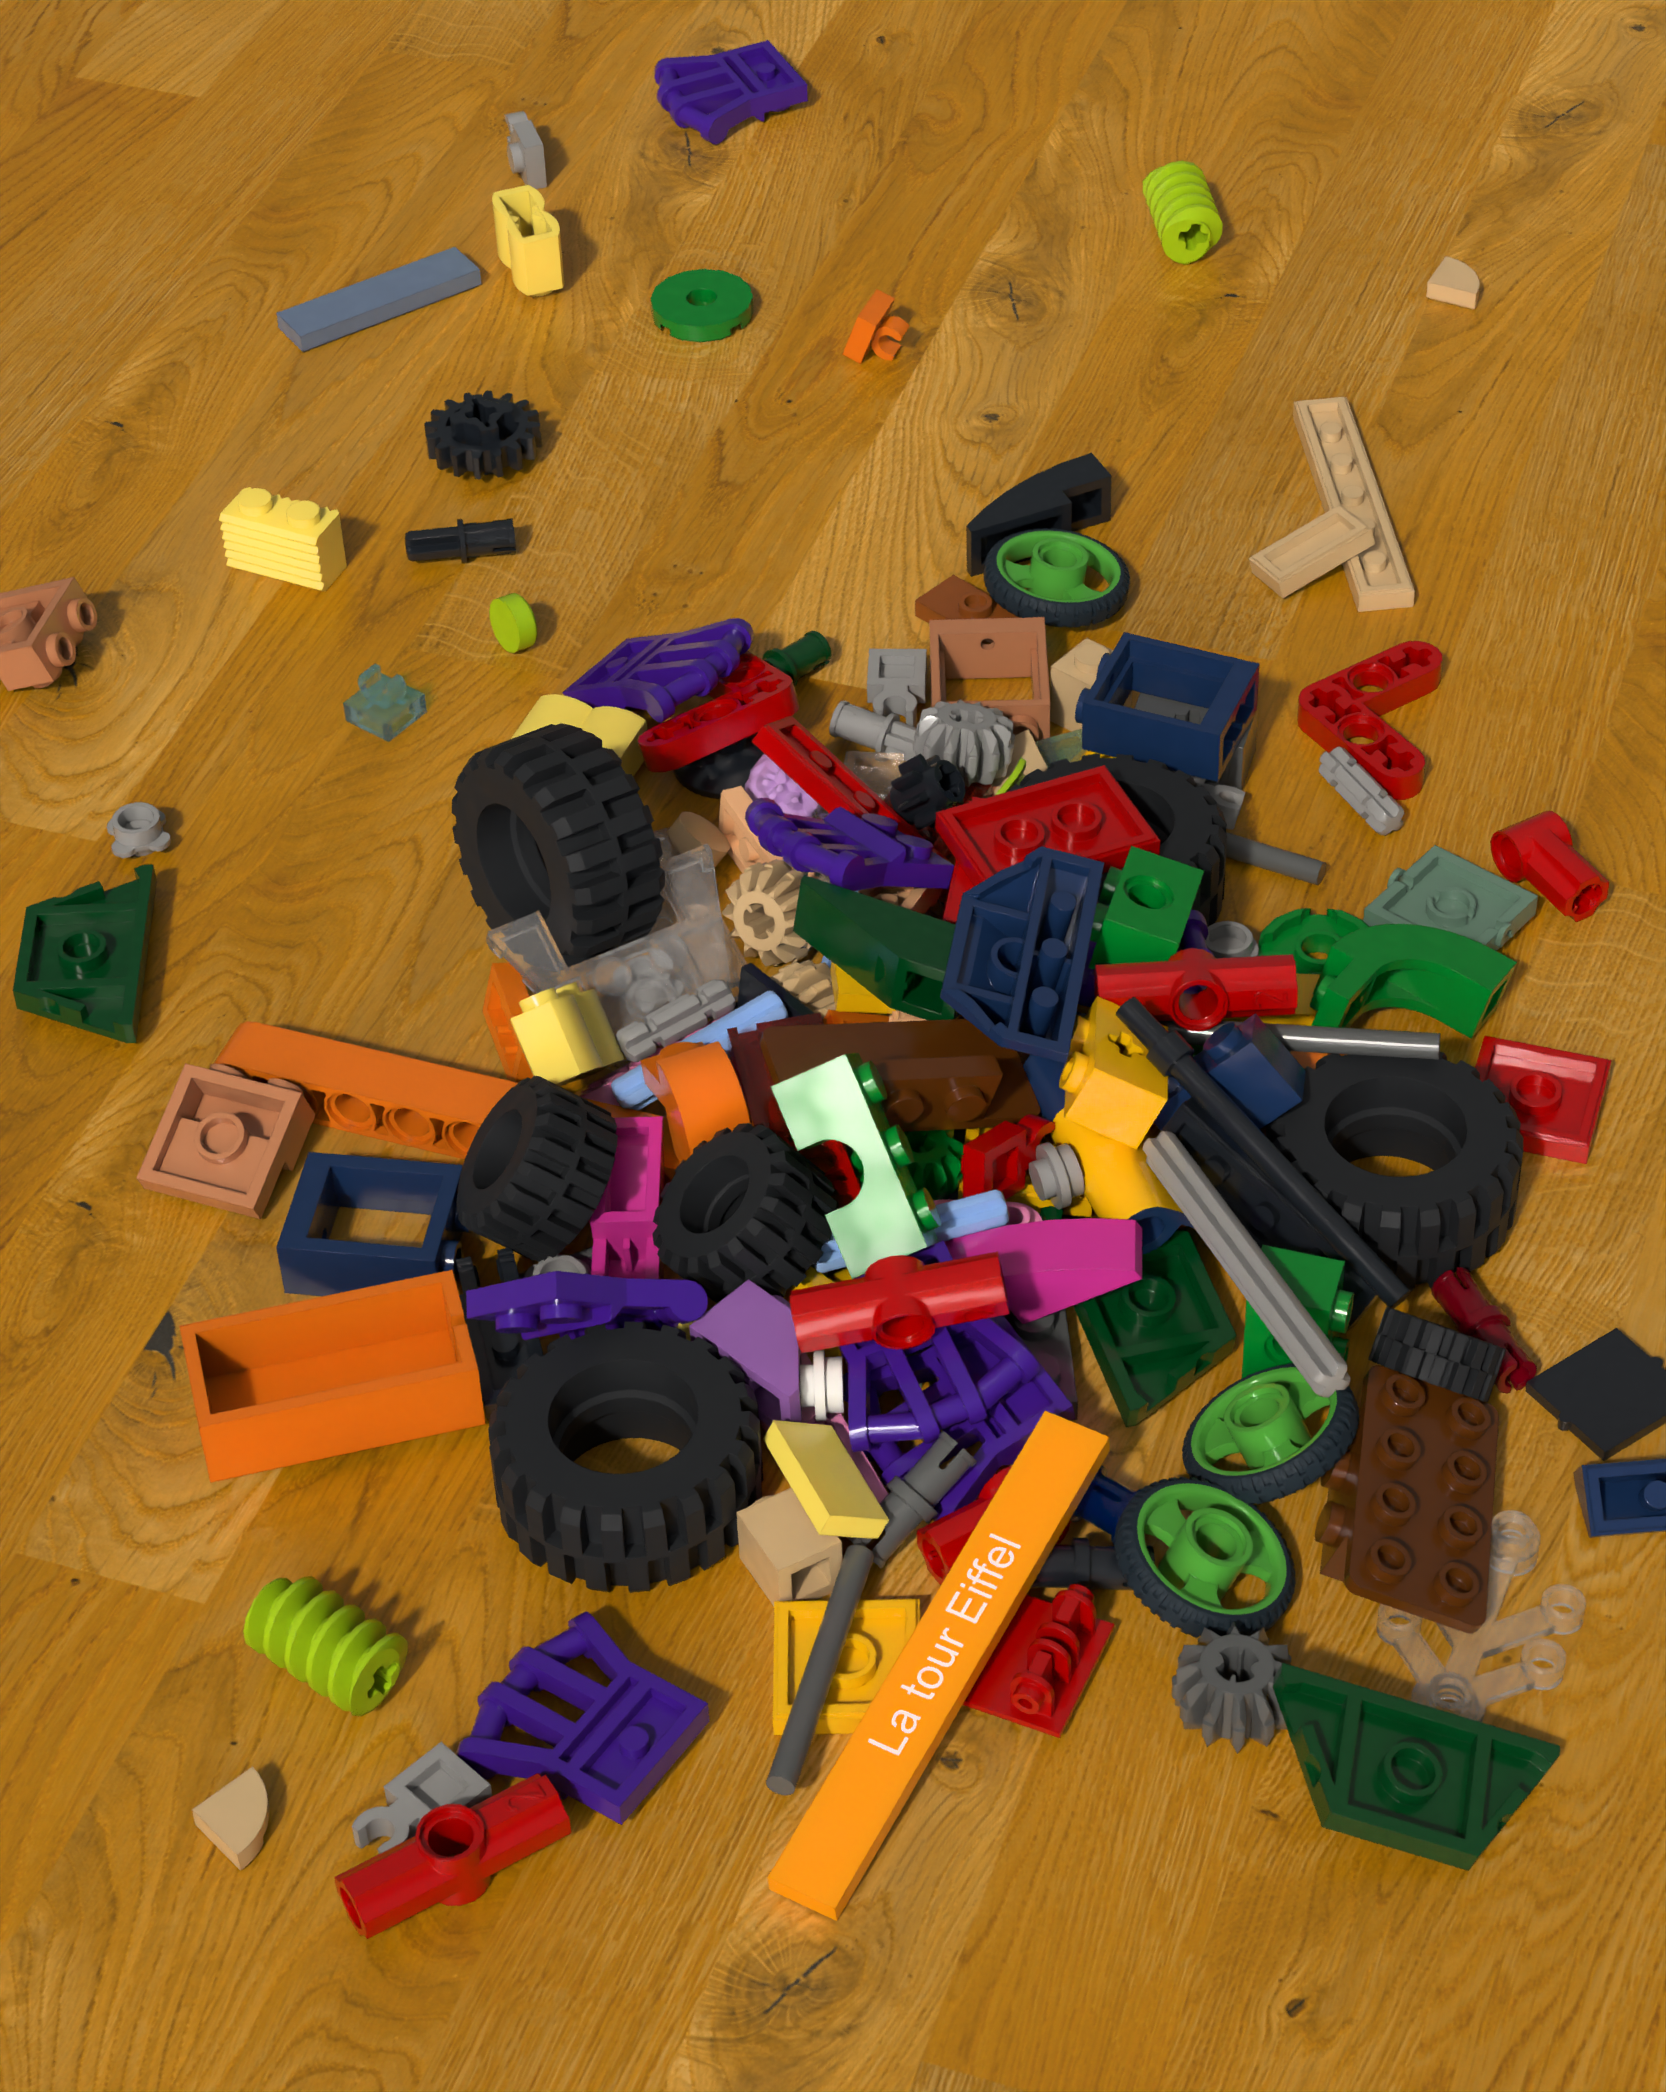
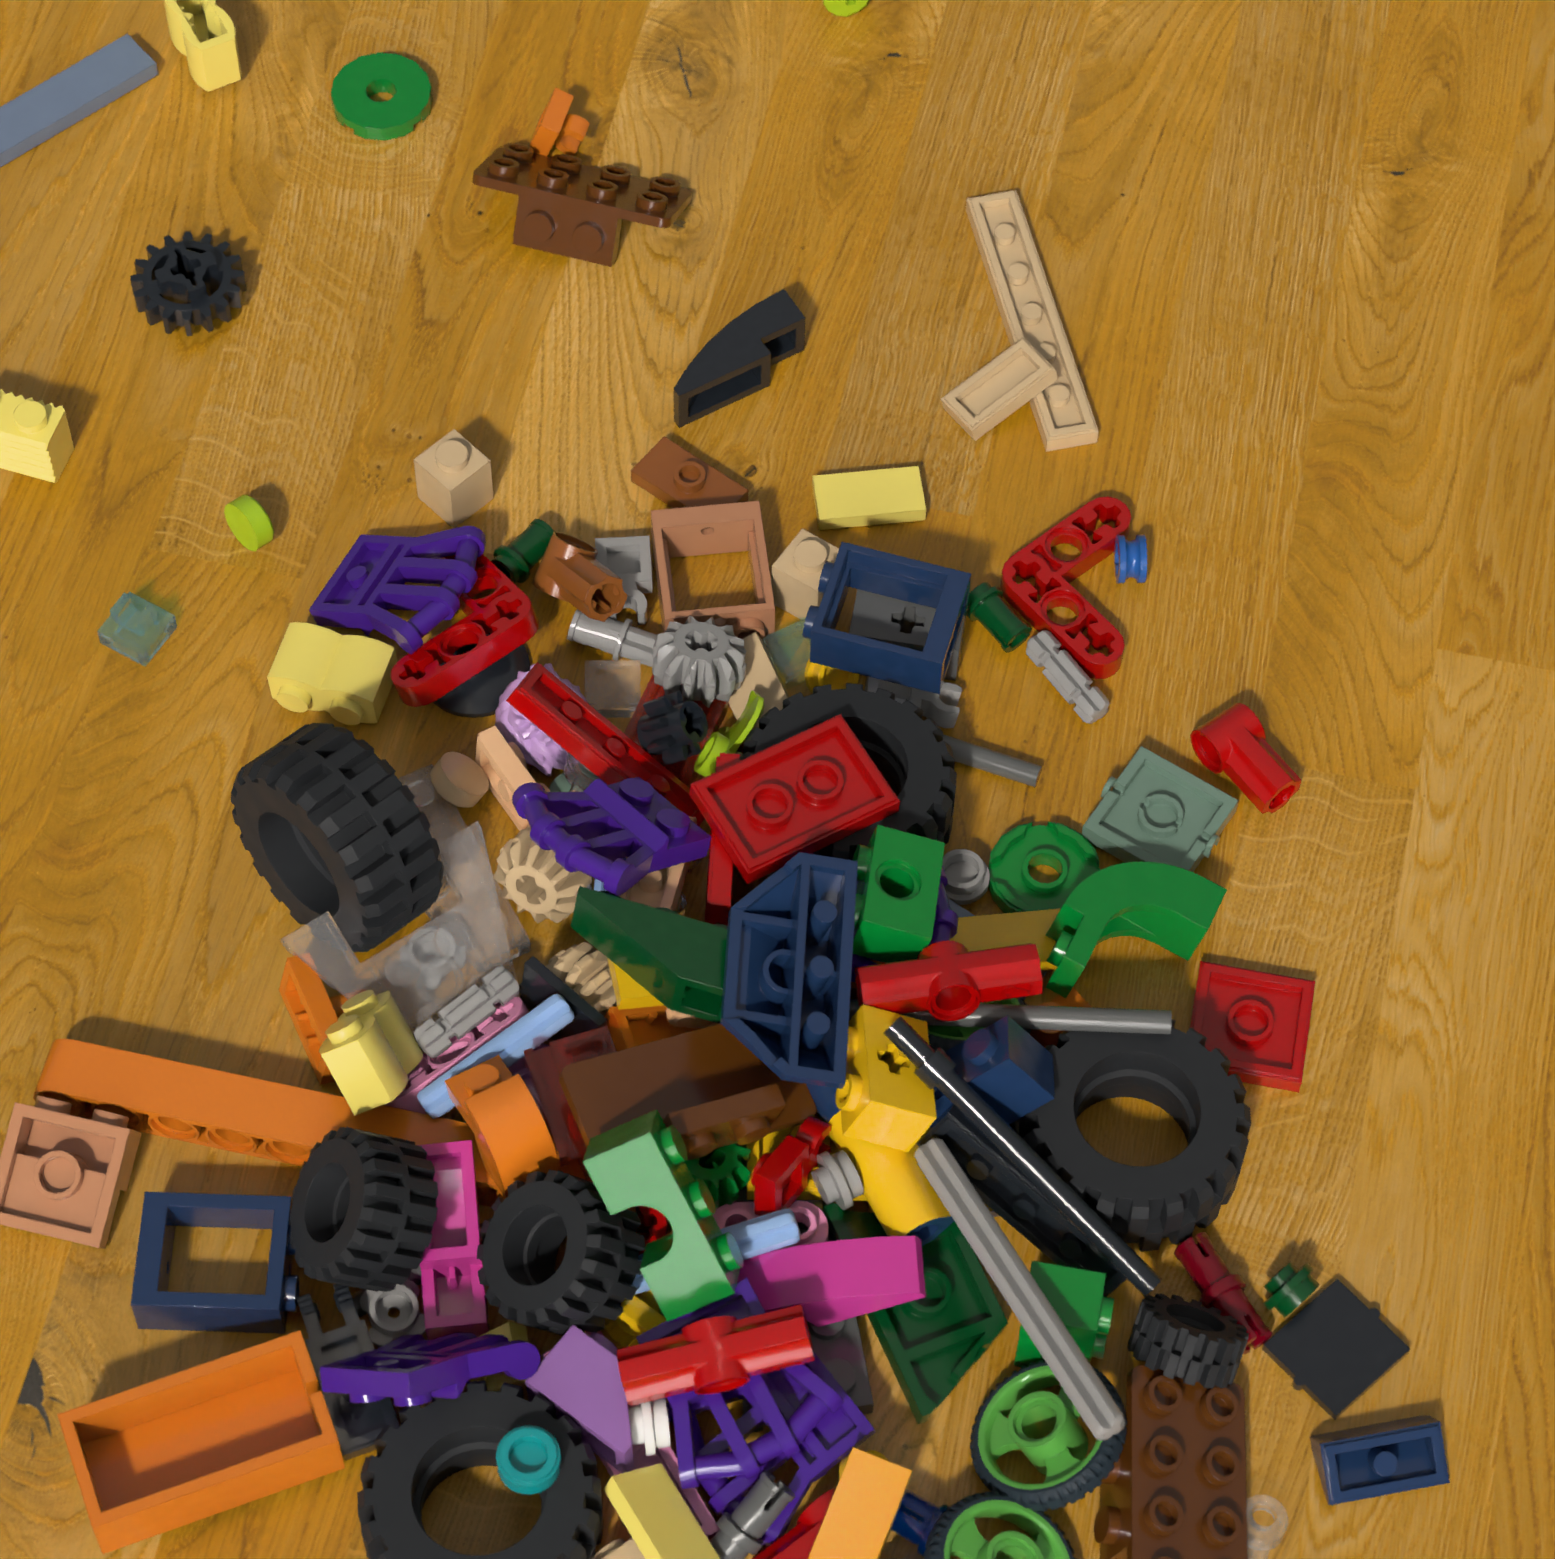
camera: 10 degrees left, 15 degrees up
(462, 541) = (183, 418): black axle -> none
(681, 1386) = (528, 1459): none -> teal tile
(729, 587) = (453, 478): none -> tan brick
(847, 673) = (575, 576): none -> dark orange piece
(885, 397) = (577, 206): none -> reddish brown bracket
(1055, 577) = (762, 439): wheel -> none
(1187, 628) = (868, 498): none -> light yellow tile
(1280, 726) = (997, 616): none -> dark green pin
(1438, 693) = (1130, 559): none -> blue bush
(1454, 284) = (1107, 35): tan tile -> none
(1560, 1327) = (1290, 1288): none -> dark green plate

